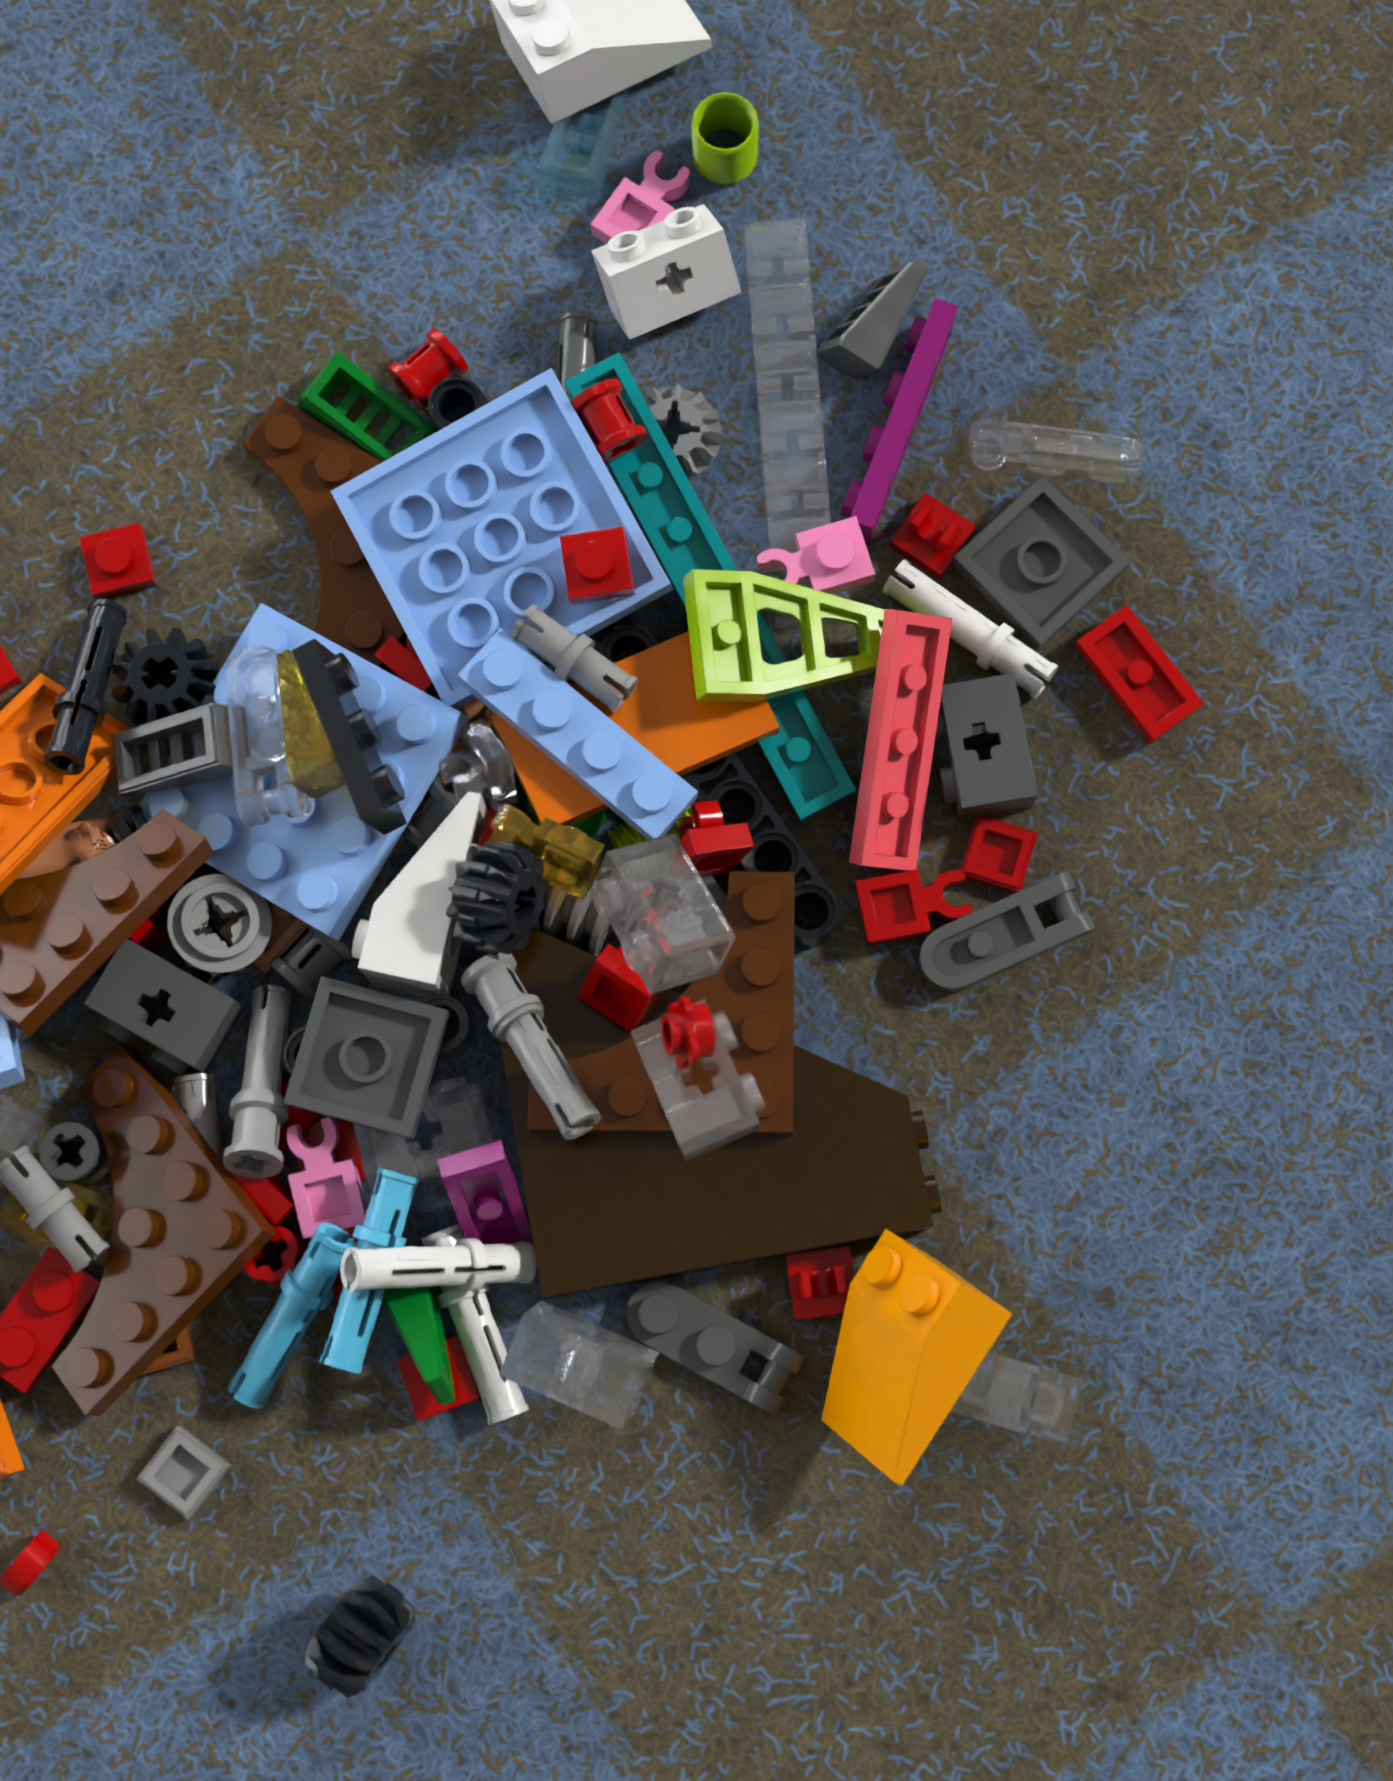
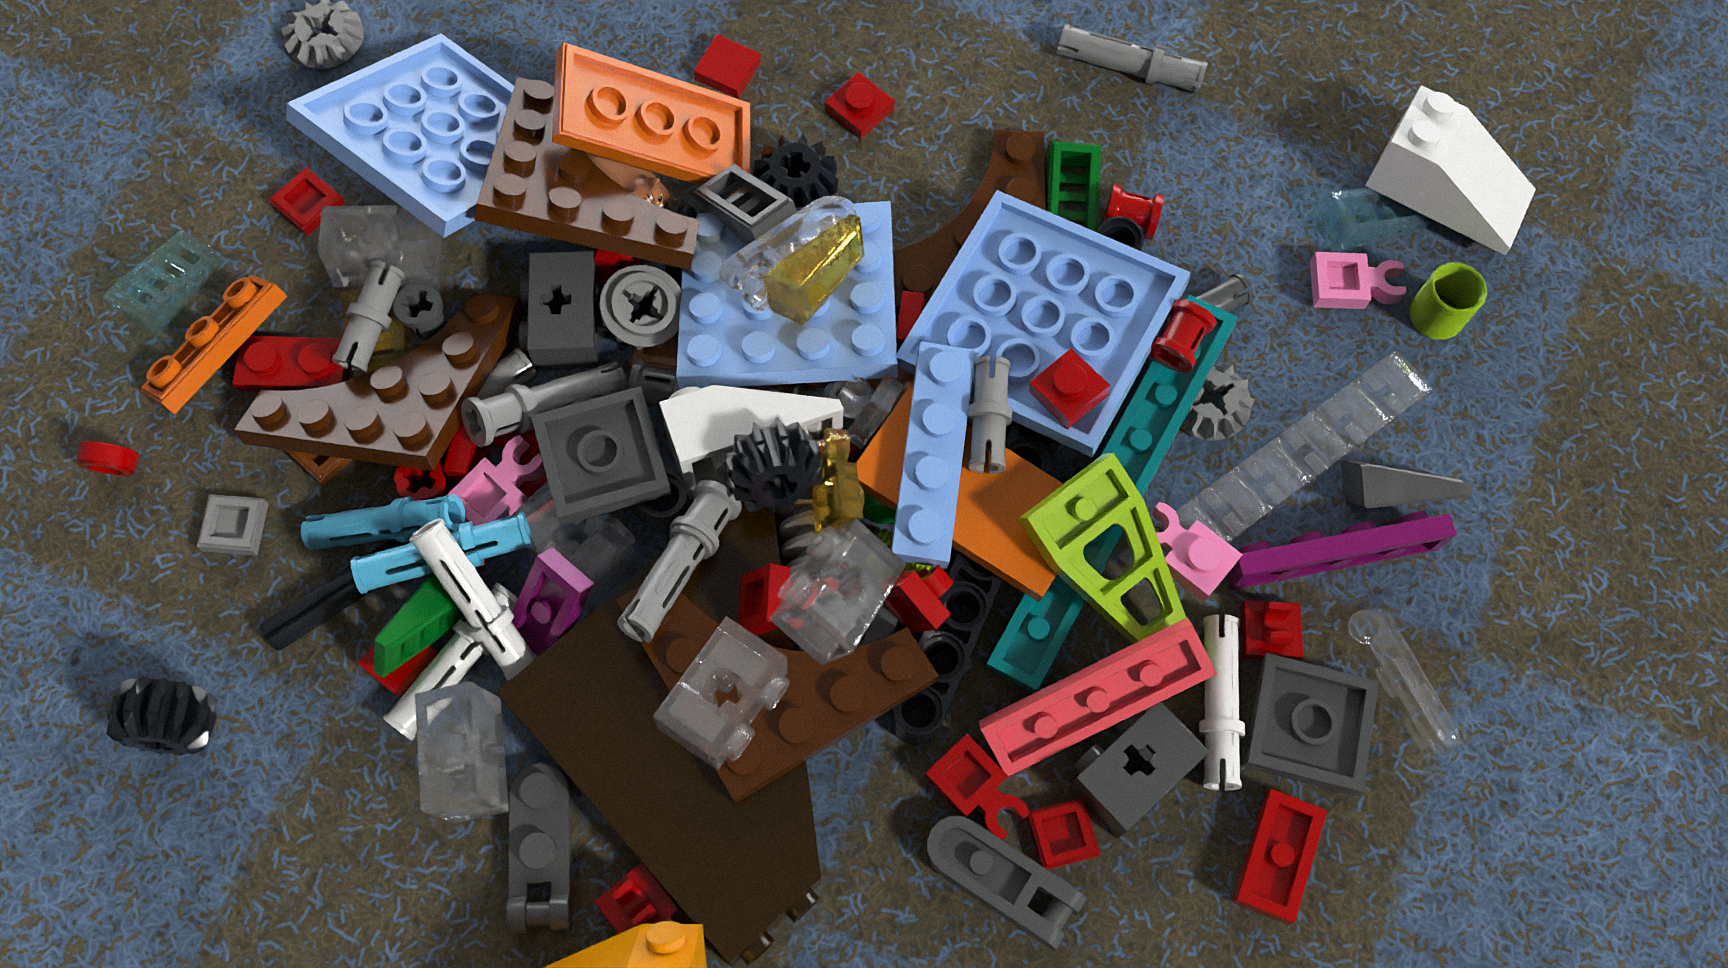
camera: 50 degrees right, 10 degrees down
(80, 707) = (737, 130): black pin -> none
(262, 241) = (1130, 58): none -> light grey pin
(327, 1413) = (315, 606): none -> black axle
(351, 736) = (825, 298): black plate -> none
(666, 270) = (1330, 343): white brick -> none
(688, 1032) = (748, 655): red plate -> none

